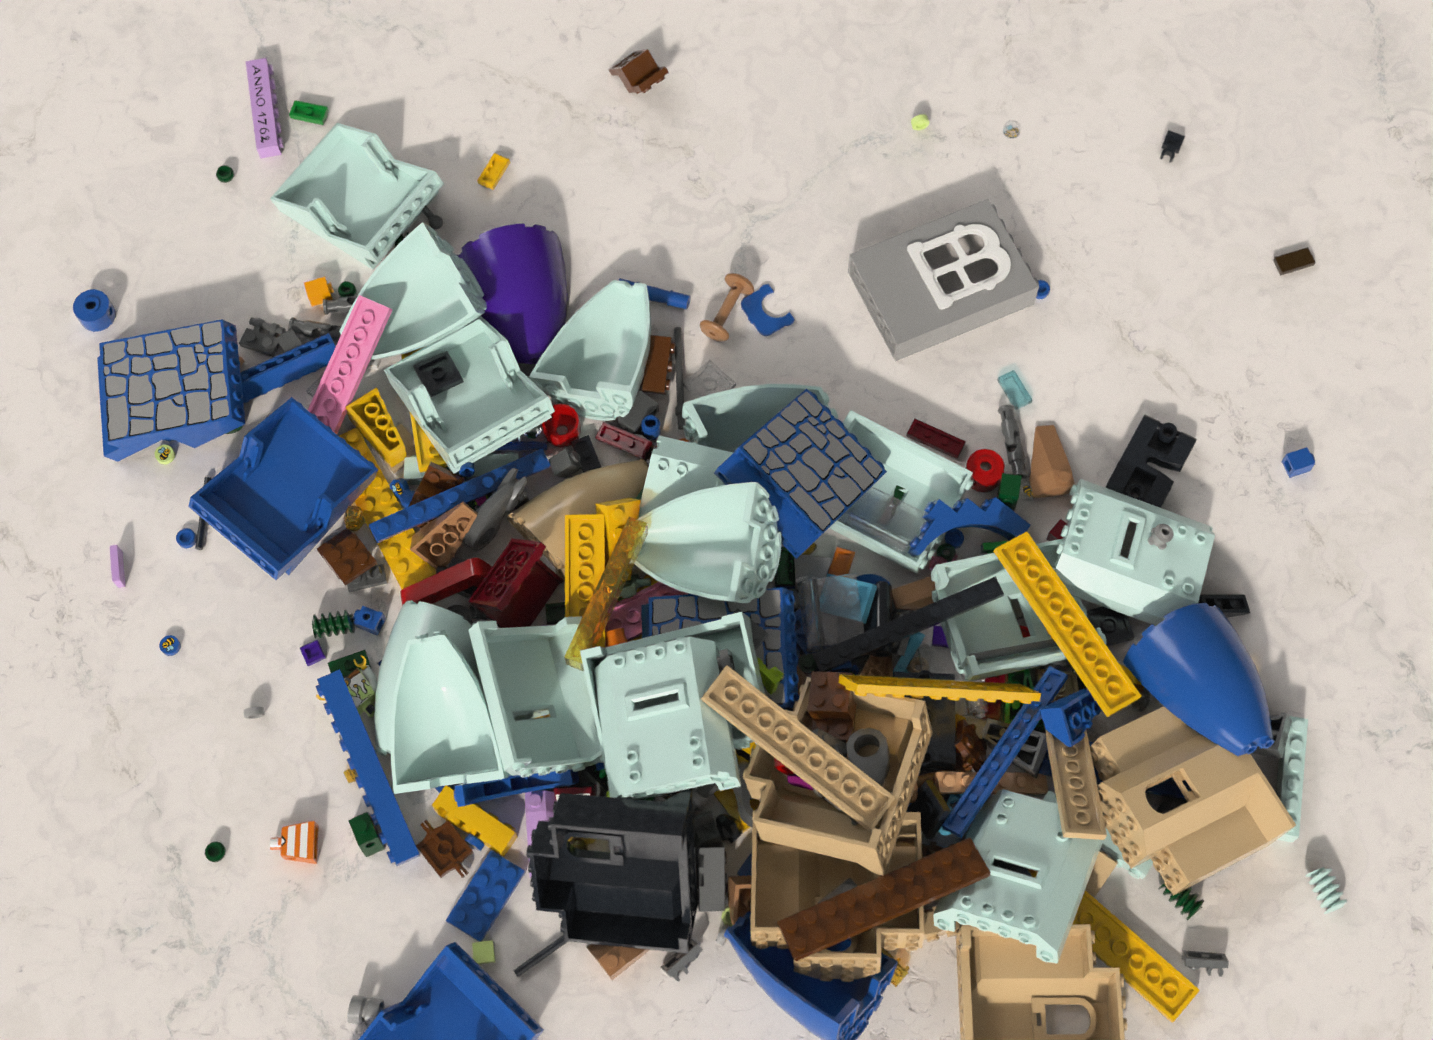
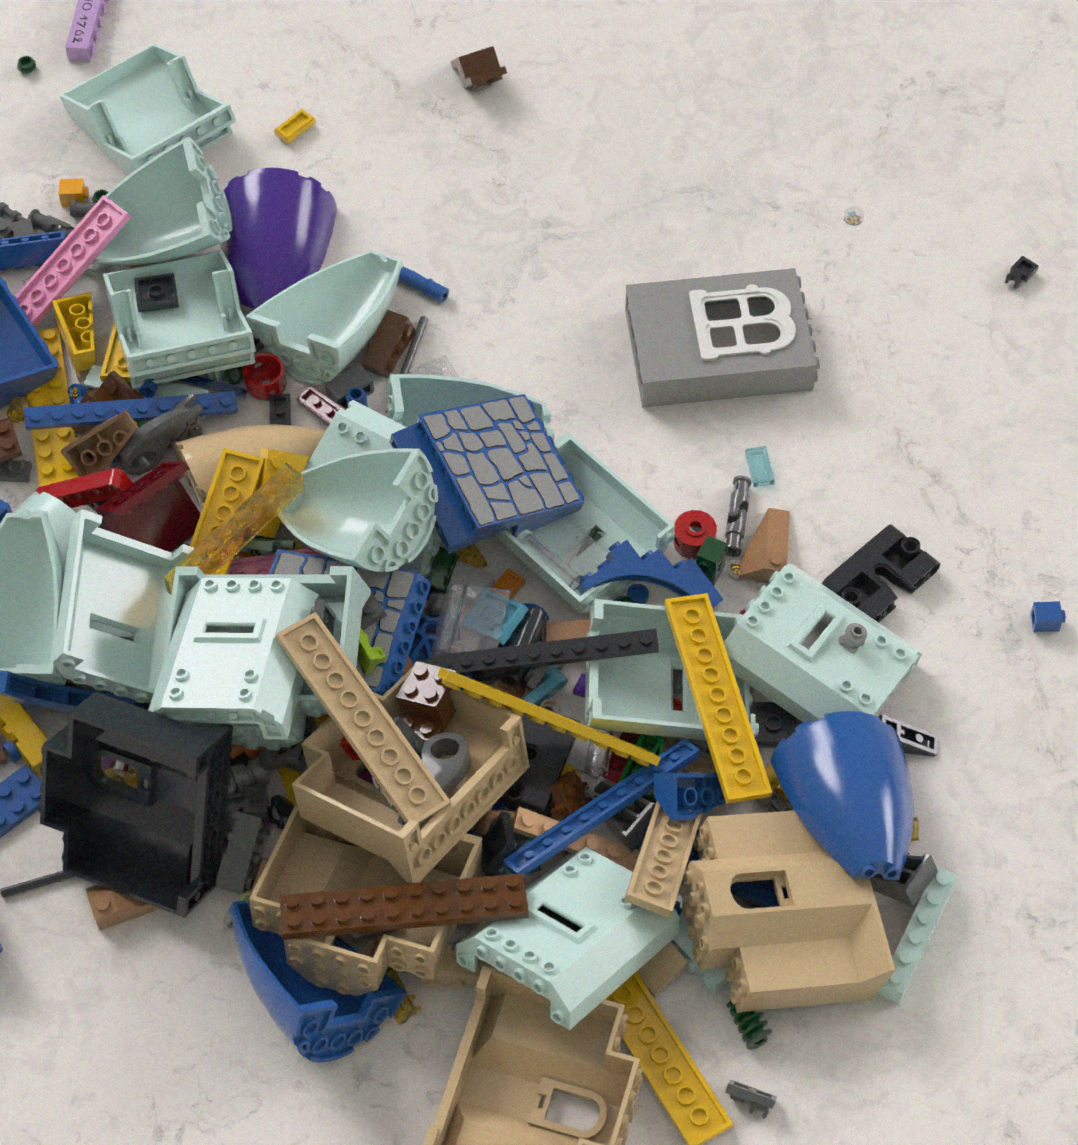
camera: 15 degrees right, 10 degrees down
(308, 112) = (132, 29): green plate -> none
(434, 220) = (217, 158): dark grey bar -> none
(565, 463) = (254, 412): dark grey brick -> none
(678, 960) = (187, 924): dark grey plate -> none
(738, 285) = (502, 291): medium nougat hose -> none
(763, 323) = (511, 326): blue piece -> none
(920, 122) = (756, 185): yellowish green tile -> none
(936, 438) = (656, 492): dark red tile -> none
(1014, 649) = (649, 714): dark grey bar -> none
(1043, 289) = (826, 376): blue tile -> none
(1326, 889) = (915, 1061): light aqua piece -> none

